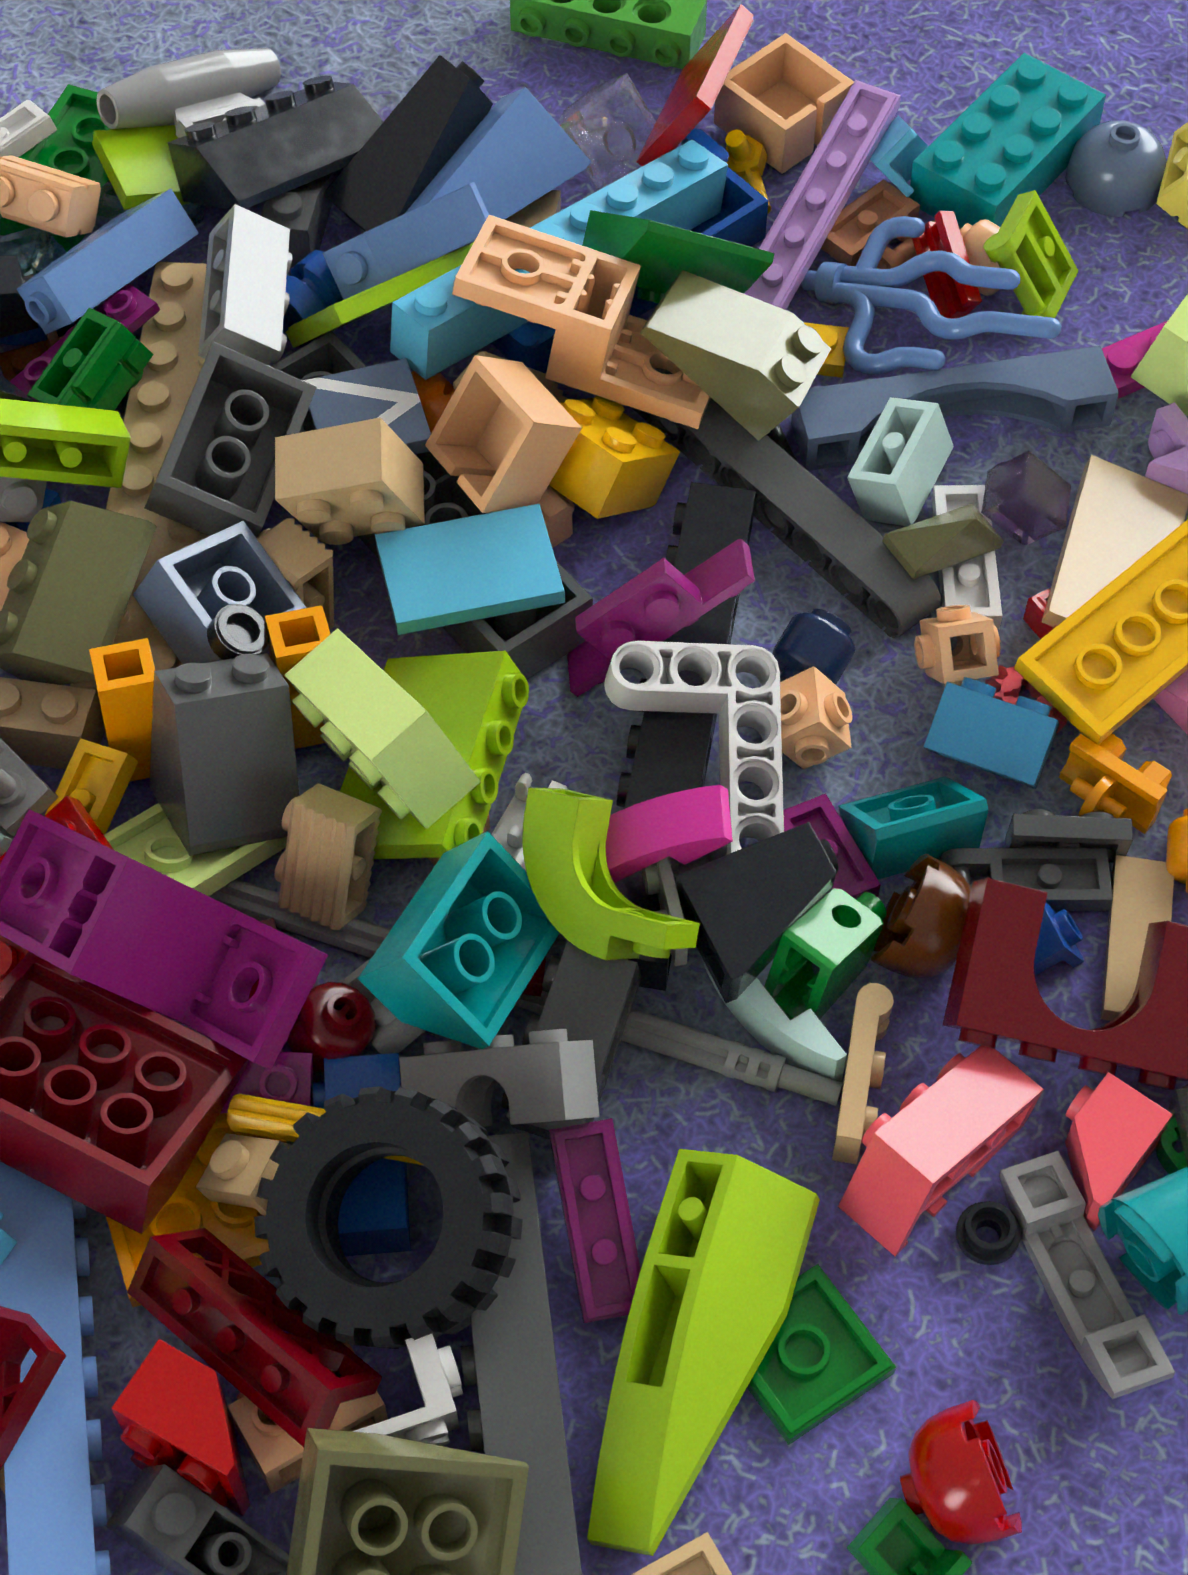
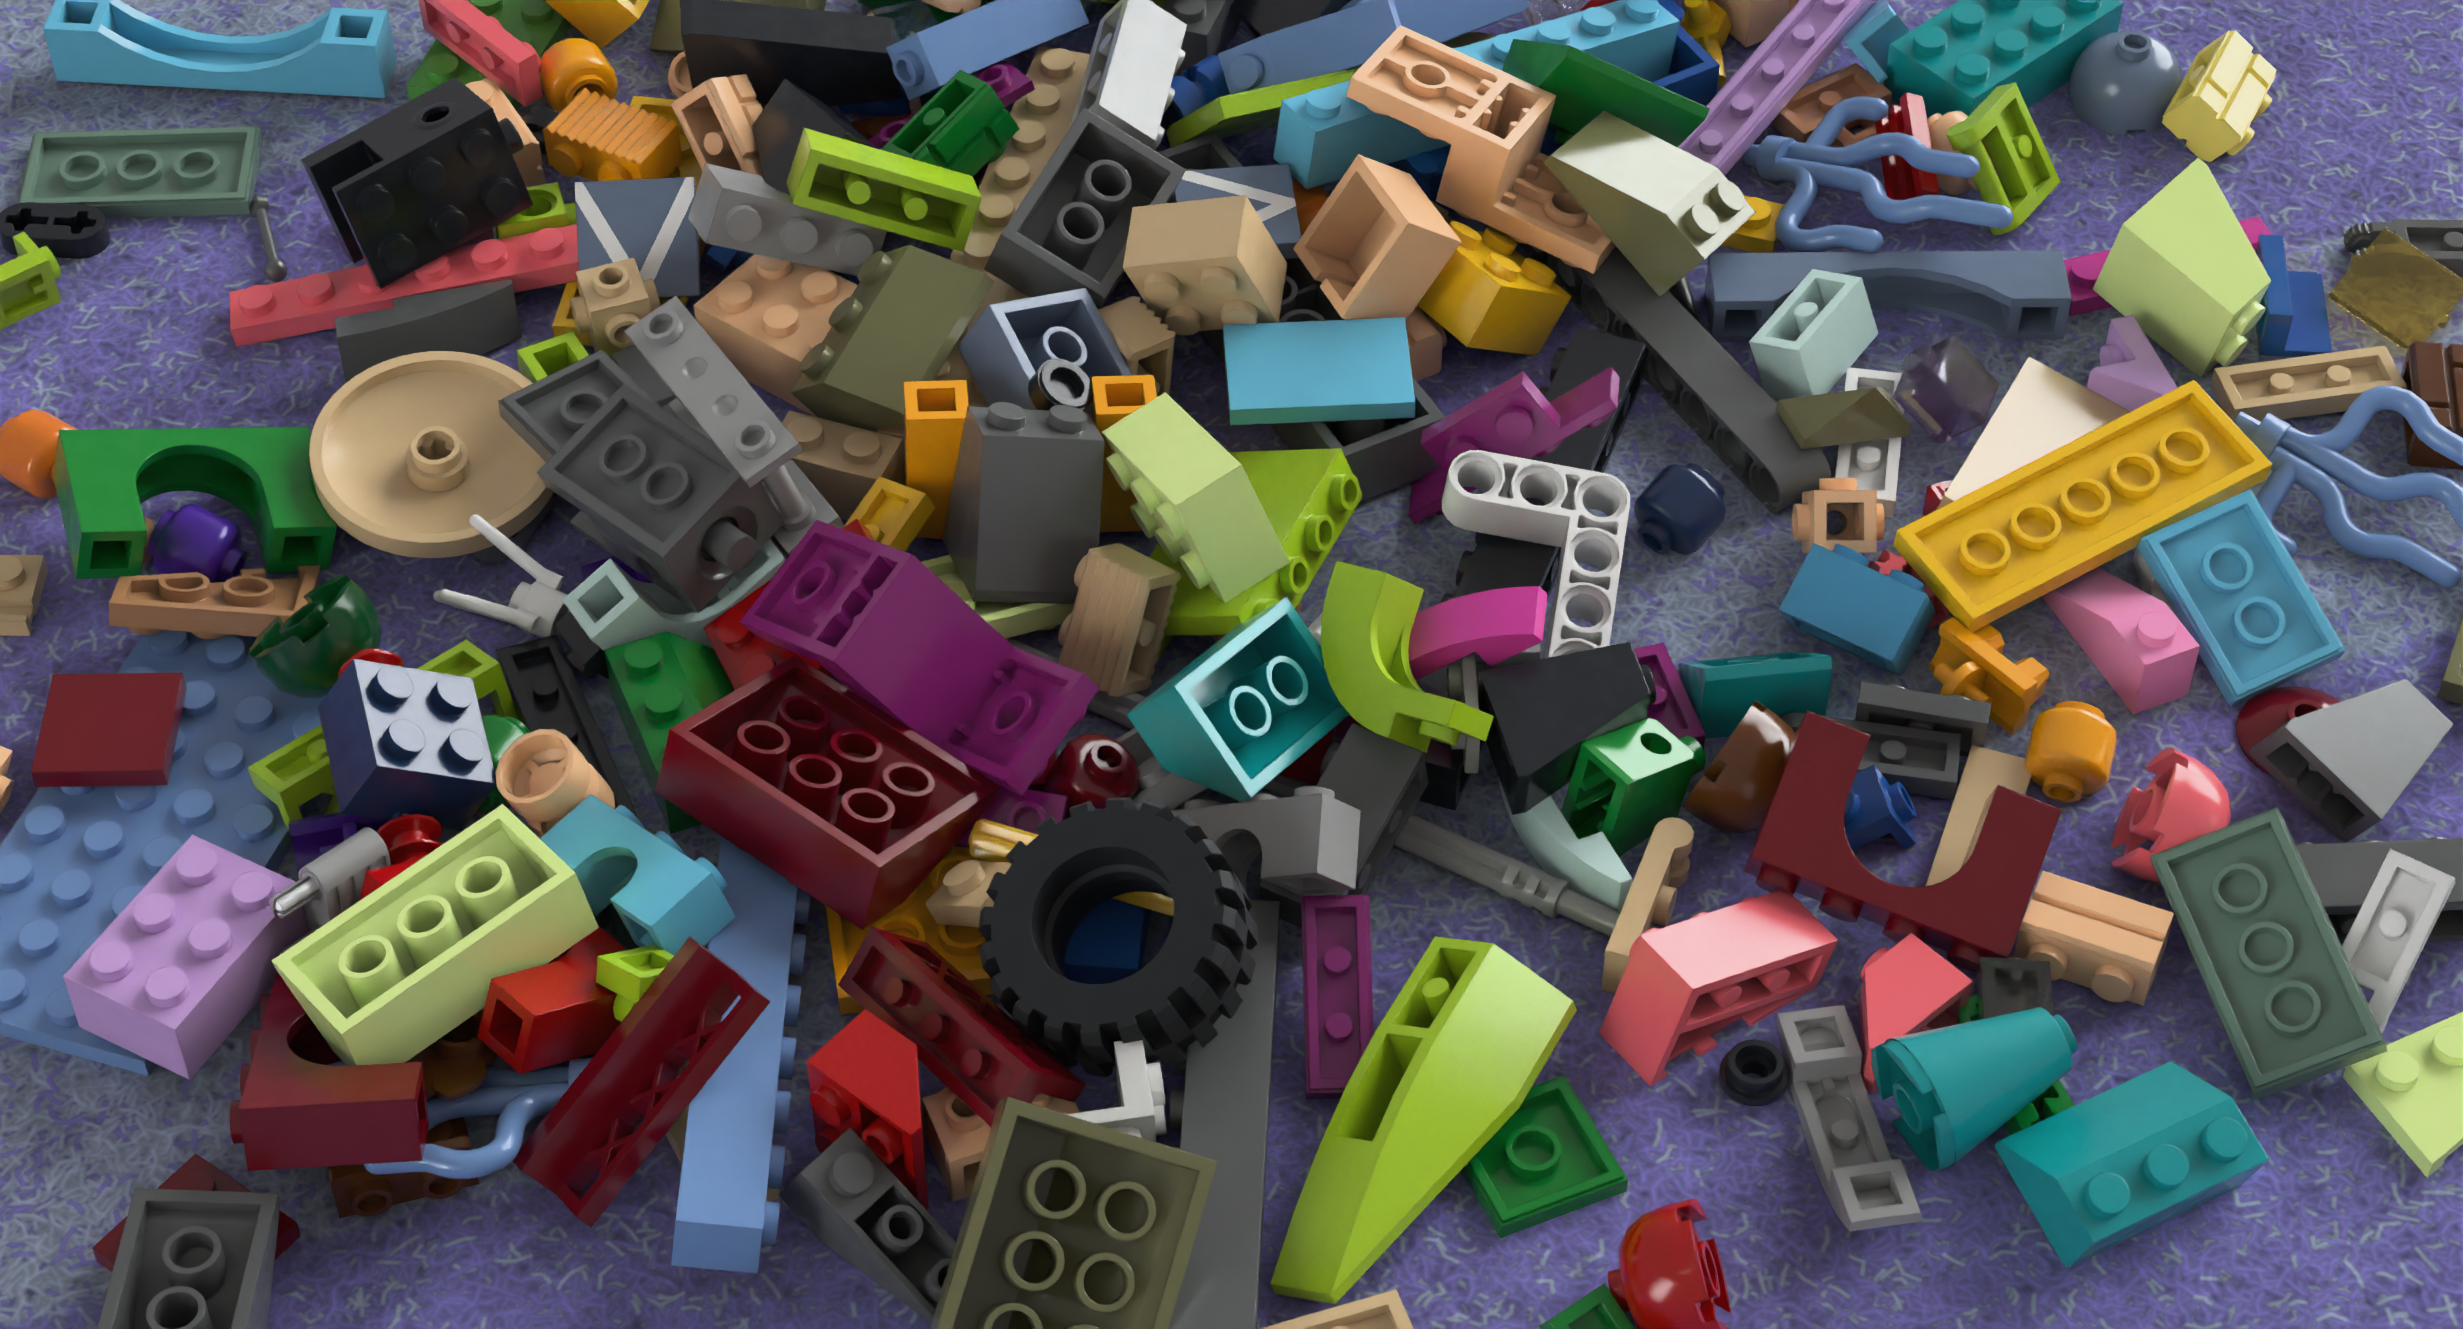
camera: 10 degrees right, 10 degrees down
(813, 718) = (1661, 569): light nougat brick -> none

